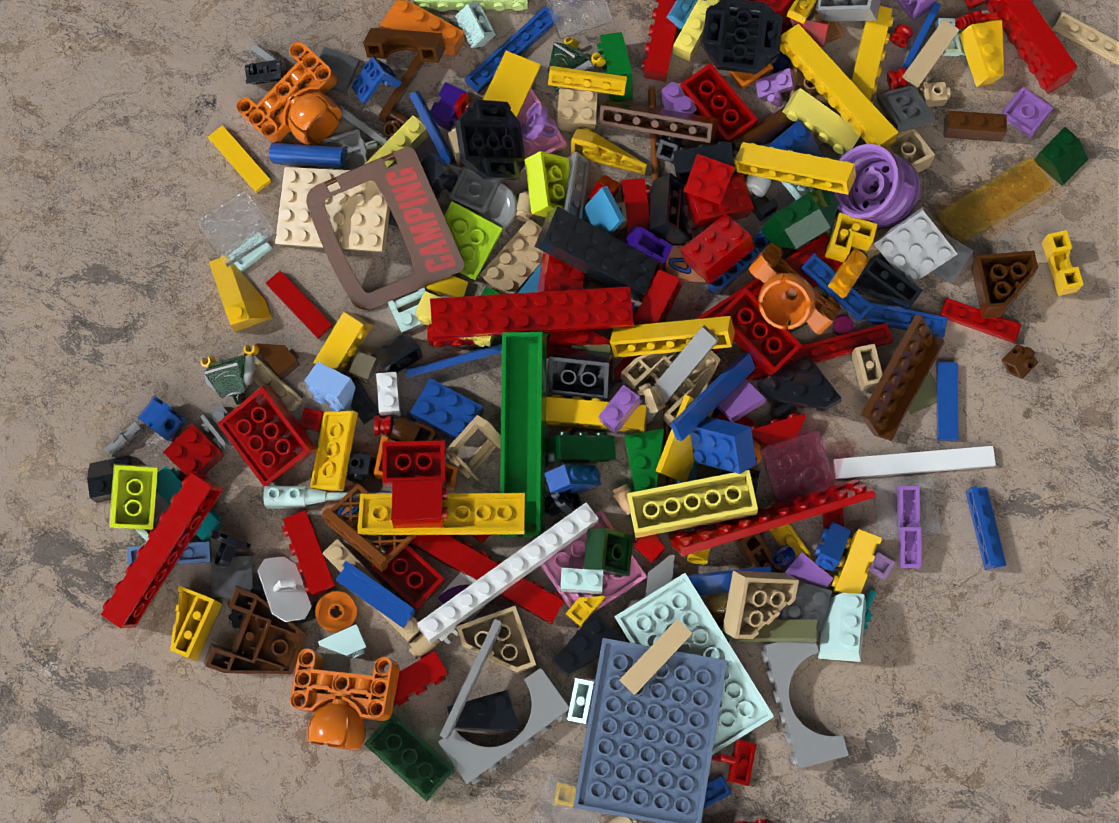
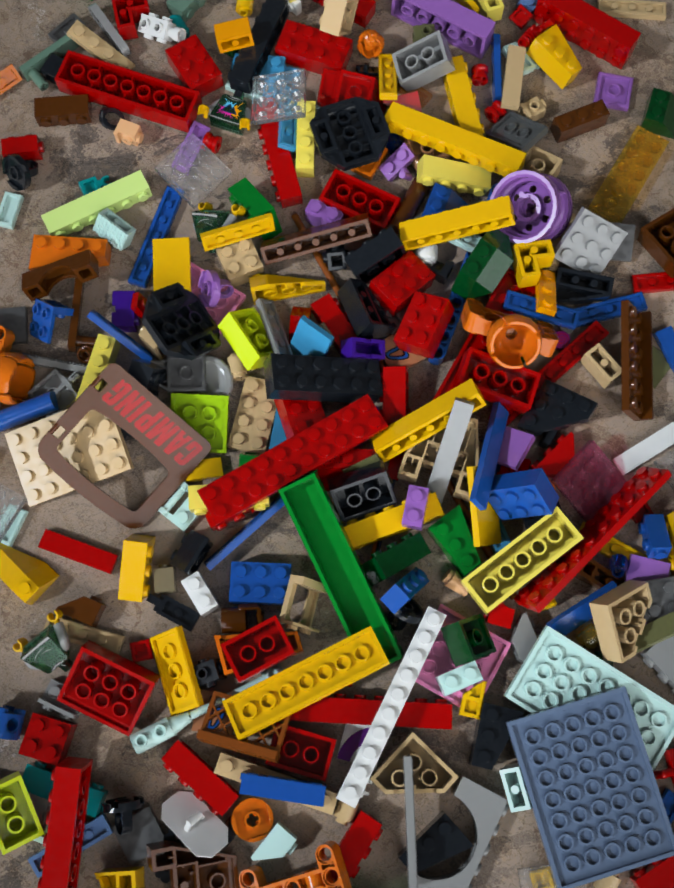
camera: 25 degrees left, 0 degrees up
(330, 387) = (145, 614): light blue slope -> none
(383, 425) = (209, 624): red wheel -> none
(418, 504) = (281, 685): red brick -> none
(653, 397) = (437, 481): tan bracket -> none
(655, 656) = (562, 716): tan tile -> none
(709, 179) = (388, 267): red plate -> none

